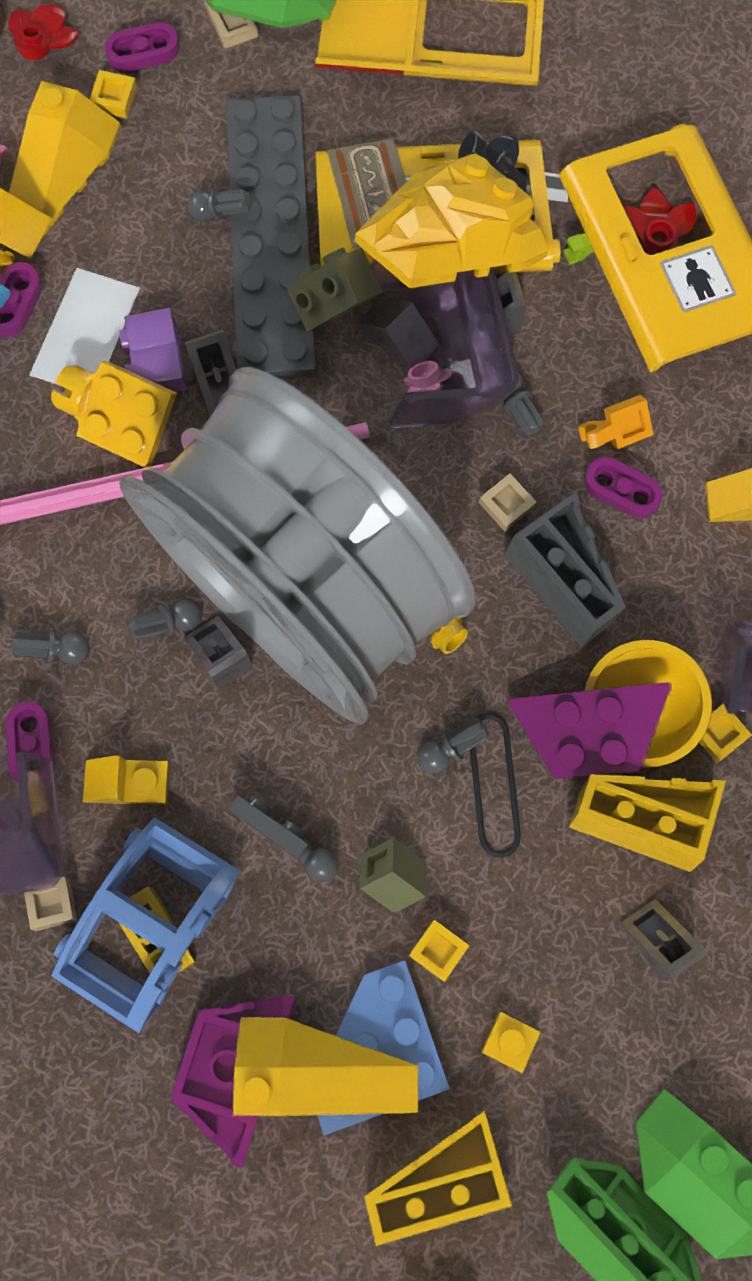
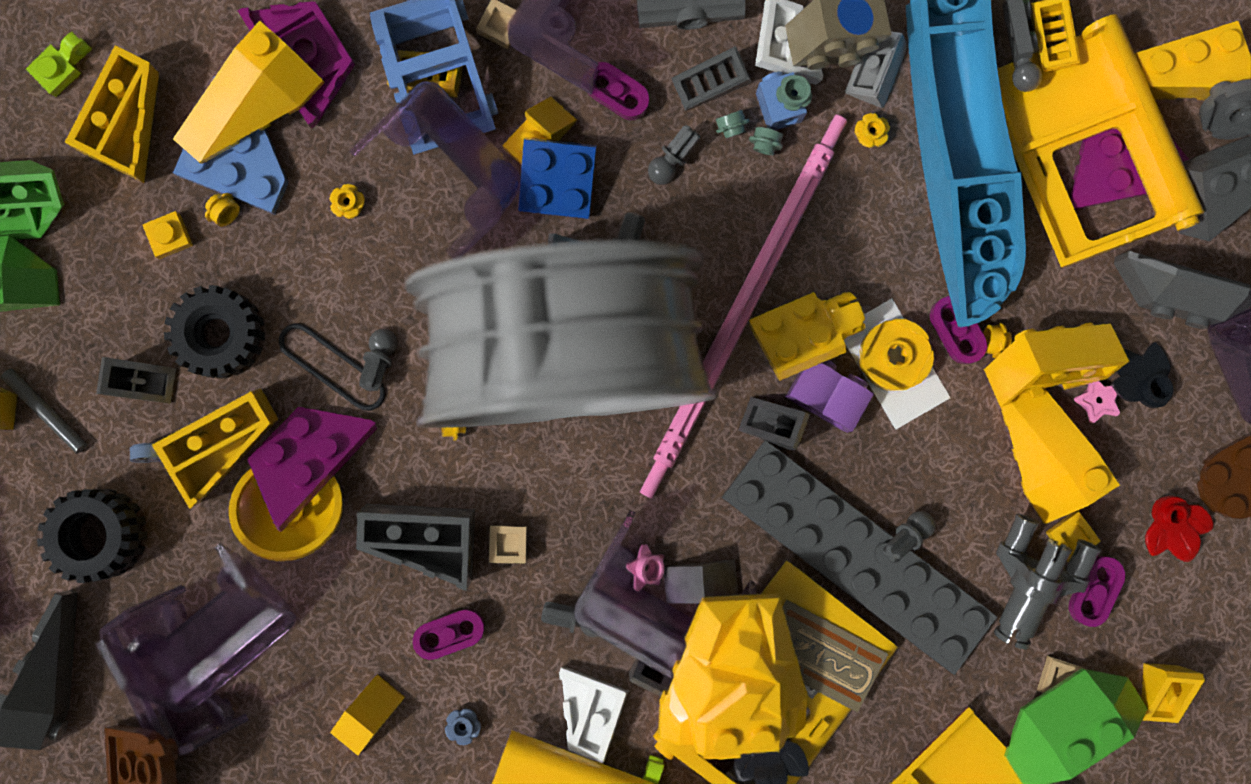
camera: 125 degrees right, 10 degrees up
(79, 350) = (915, 348): none -> yellow plate
(154, 726) = (557, 178): none -> blue plate
(172, 86) = (1037, 581): none -> dark grey wheel
(209, 877) = (434, 112): none -> clear purple windscreen
(320, 863) = (412, 201): dark grey plate -> none
(334, 288) = (762, 555): olive brick -> none
(339, 911) = (350, 210): none -> yellow plate
(393, 875) = (328, 249): olive panel -> none
(439, 950) = (258, 237): yellow plate -> none
(442, 1010) = (221, 209): none -> yellow plate
(579, 328) = (591, 713): none -> white wing
(590, 910) = (189, 327): none -> black tyre
(623, 425) = (492, 674): light orange plate -> none
(684, 426) = (464, 716): none -> sand blue plate
(715, 874) = (143, 453): none -> sand blue tile
(723, 734) = (224, 534): yellow plate -> none

